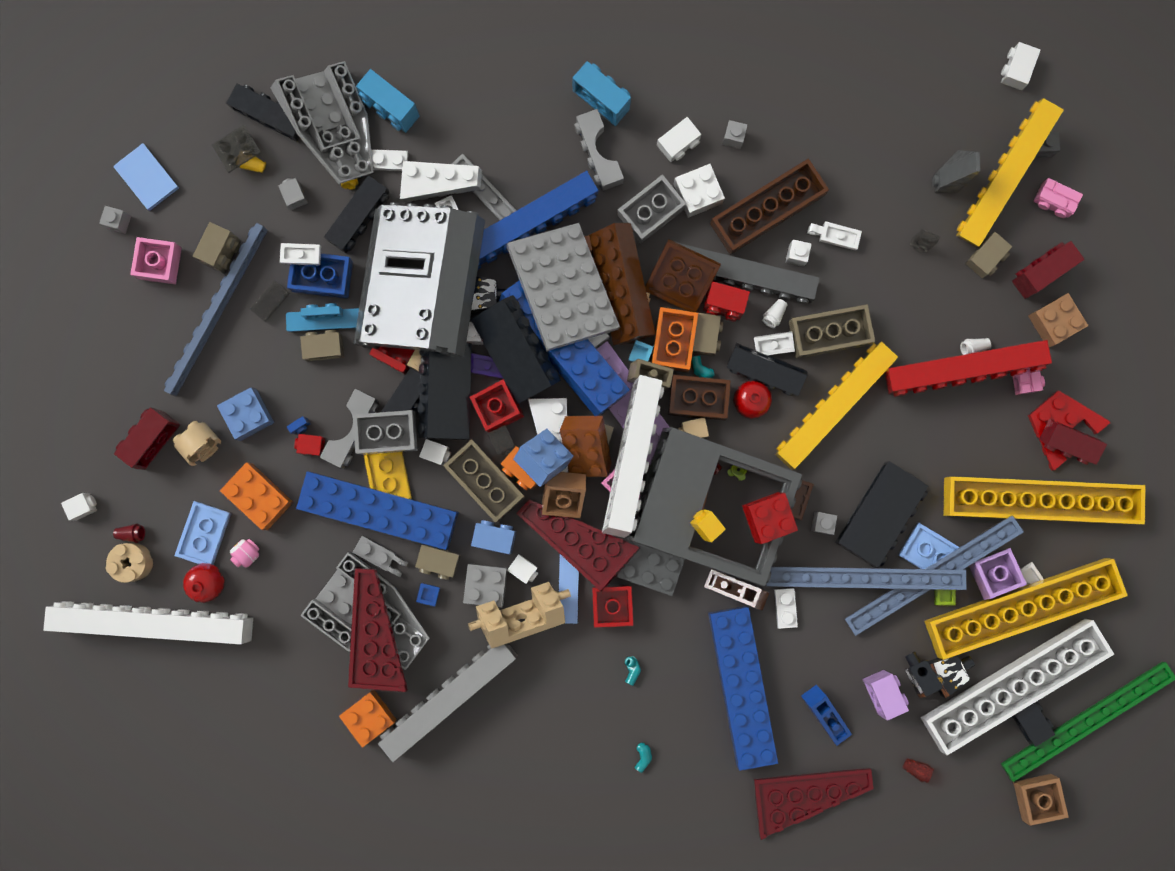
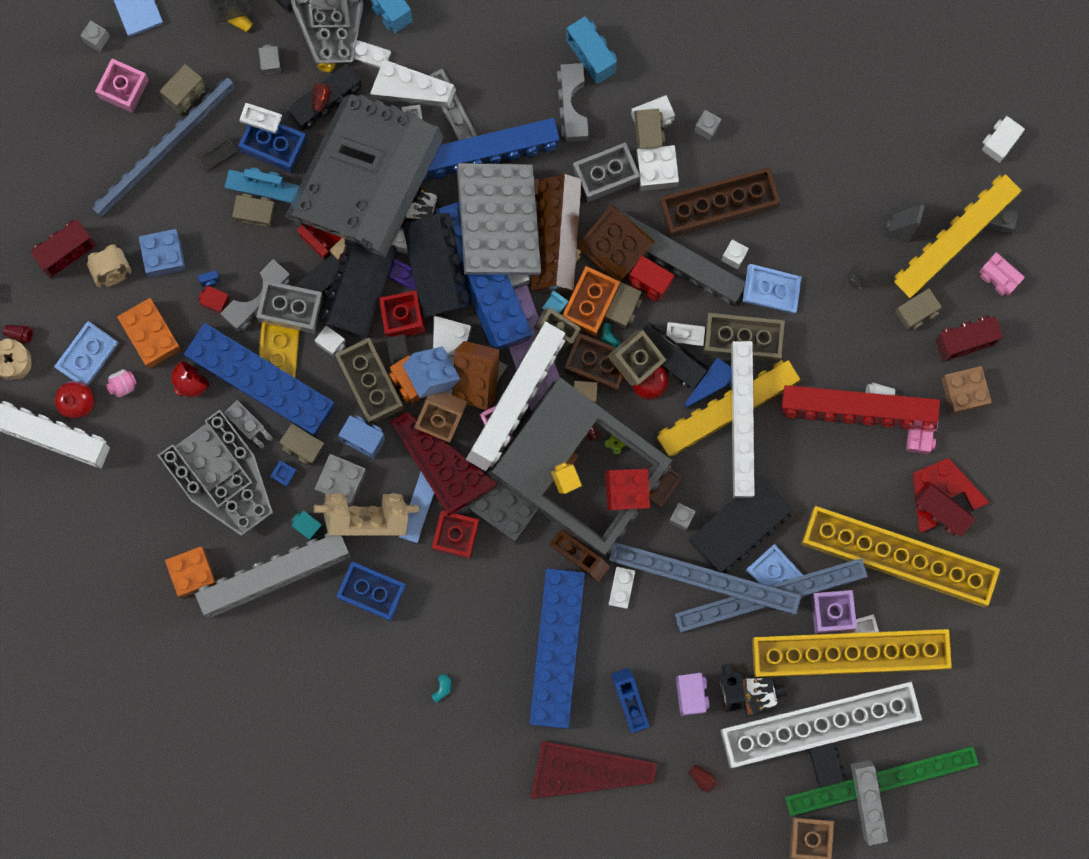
camera: 15 degrees right, 5 degrees down
(308, 532) = (187, 381): none -> red cylinder
(352, 215) = (320, 96): none -> clear red cone
(373, 647) = (217, 503): dark red wing -> none
(465, 639) = (306, 525): none -> teal brick
(523, 569) = (381, 476): white brick -> none
(547, 685) = (371, 591): none -> blue brick
(634, 670) = (458, 602): teal arm -> none
(681, 154) = (649, 128): none -> dark tan brick
(738, 384) = (636, 357): none -> dark tan brick
(774, 314) = (695, 305): white cone -> none
(818, 379) = (713, 382): none -> blue slope
(836, 235) = (777, 248): white plate -> none
(844, 276) = (772, 289): none -> light blue tile
(857, 414) = (742, 419): none -> white brick
(945, 597) = (779, 621): lime tile -> none
(1086, 748) = (869, 802): none -> light grey brick

